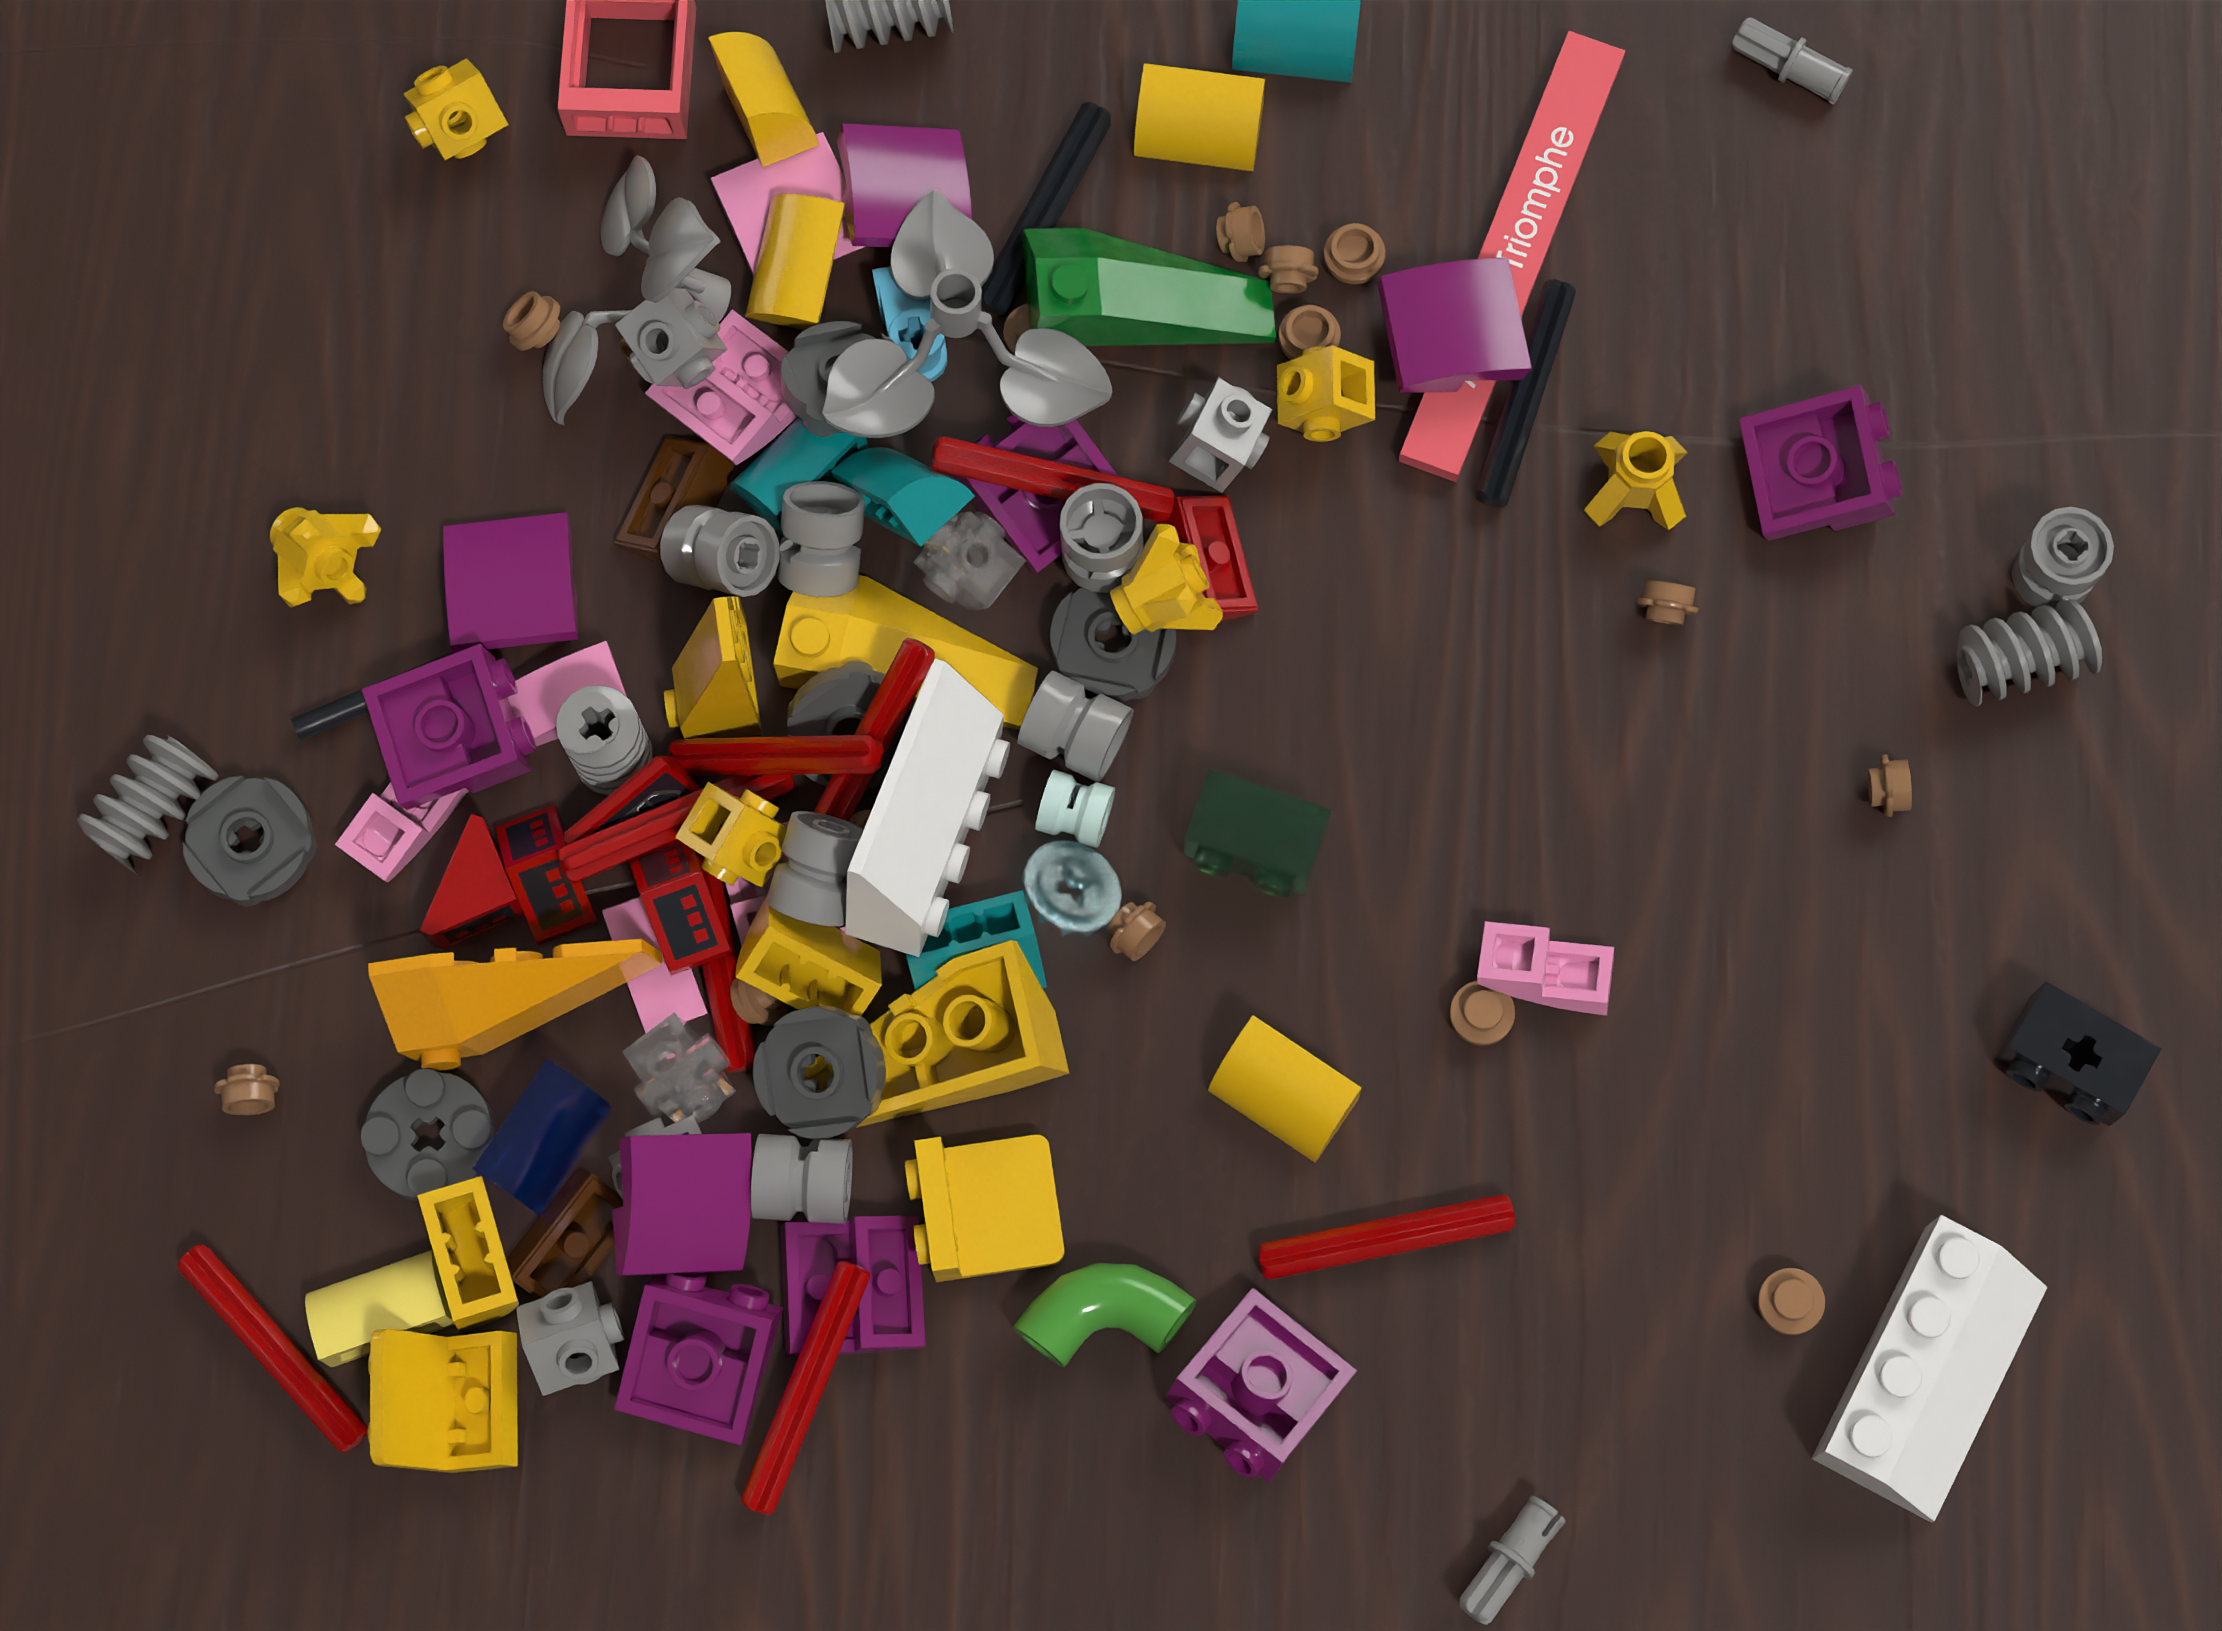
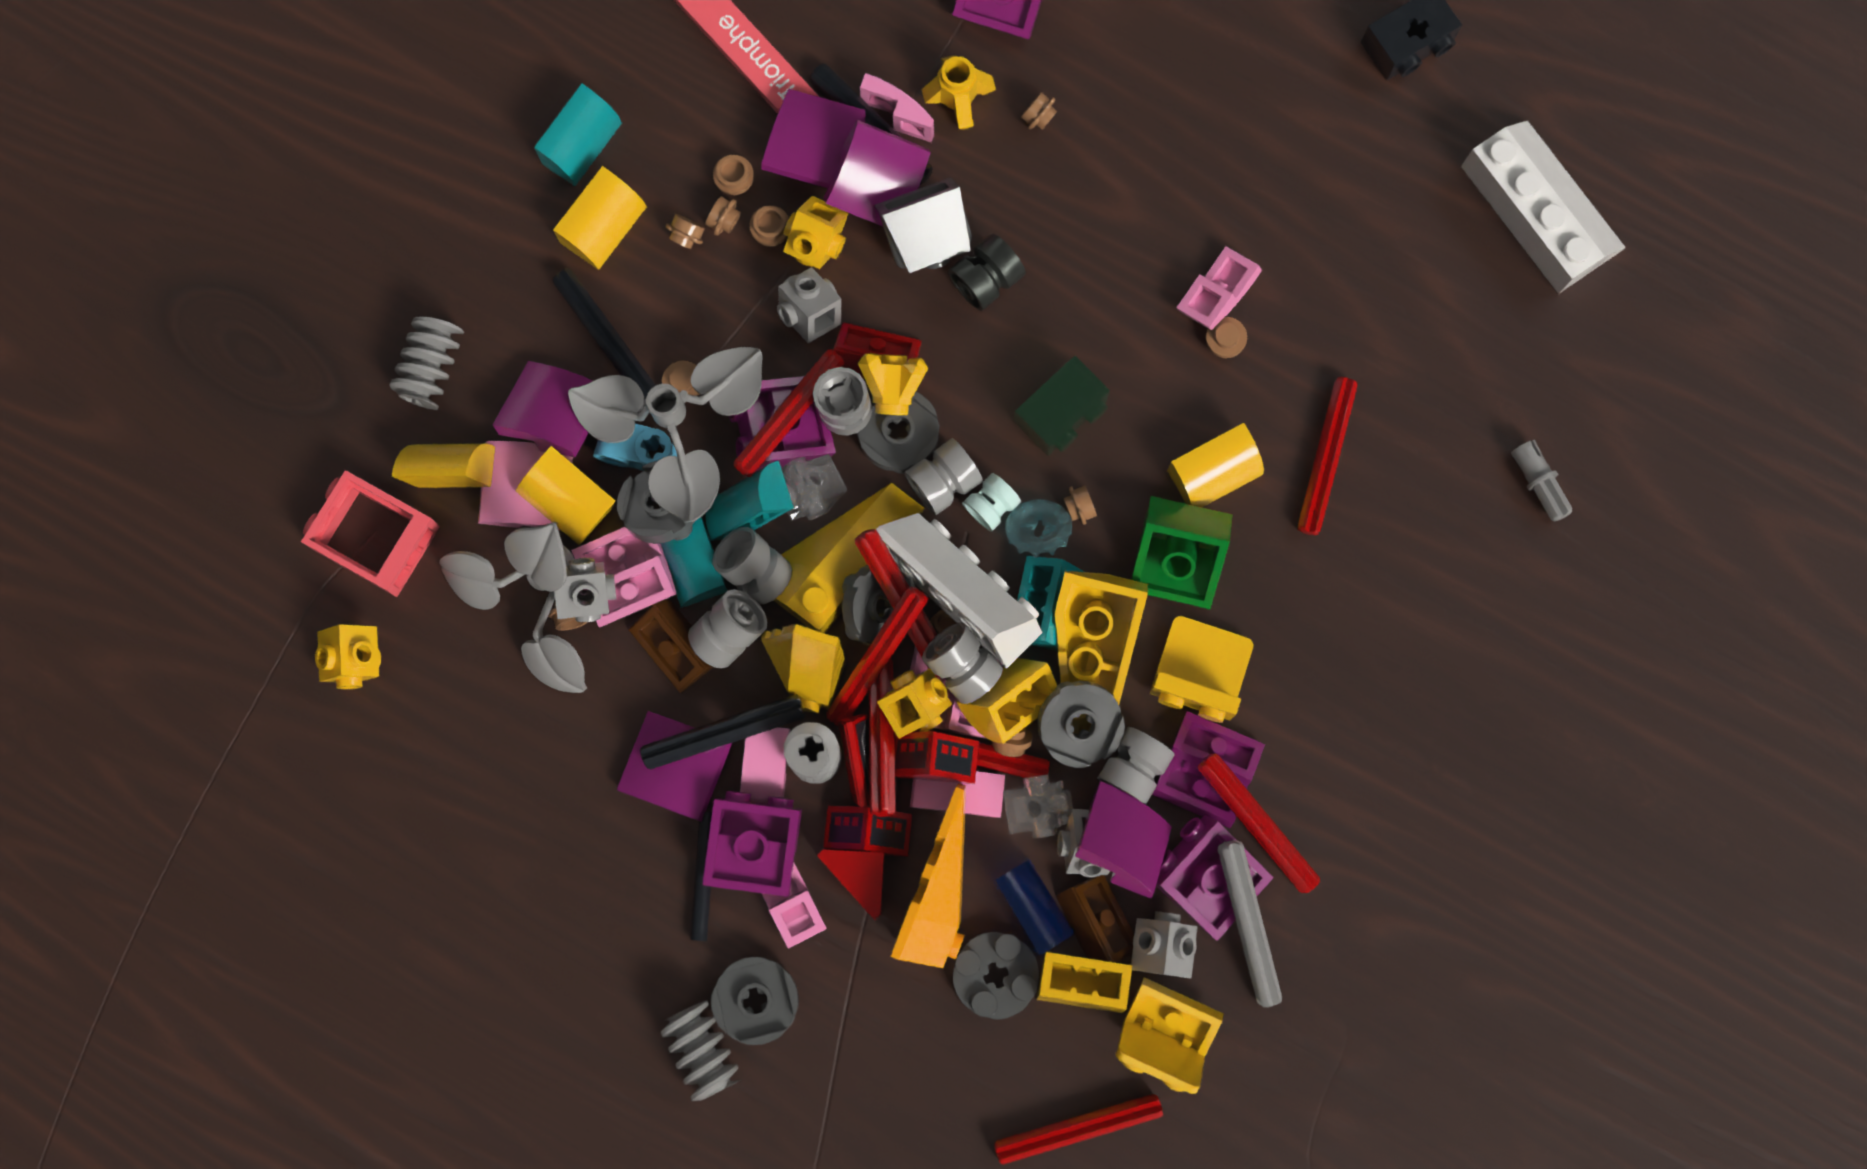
camera: 65 degrees left, 5 degrees up
(247, 1090) = (913, 1072): medium nougat plate -> none
(320, 553) = (596, 872): yellow rock -> none
(393, 1297) = (1086, 1053): light yellow brick -> none
(532, 321) = (512, 673): medium nougat plate -> none
(578, 613) = (722, 732): none -> black axle
(656, 1439) = (1250, 923): none -> light grey axle
(1100, 1299) = (1288, 630): bright green cylinder -> none
(1138, 295) = (690, 313): green wedge -> none
(1139, 1096) = (1182, 551): none -> green slope
(1258, 1387) = (1382, 568): plate -> none
(1393, 642) = (988, 271): none -> pearl dark grey wheel
(1411, 528) = (926, 226): none -> torso
(1445, 429) = (874, 170): none -> magenta slope
(1562, 422) = (908, 115): none -> bright pink slope
(1791, 1301) = (1471, 257): medium nougat plate -> none
(1890, 786) = (1209, 49): medium nougat plate -> none

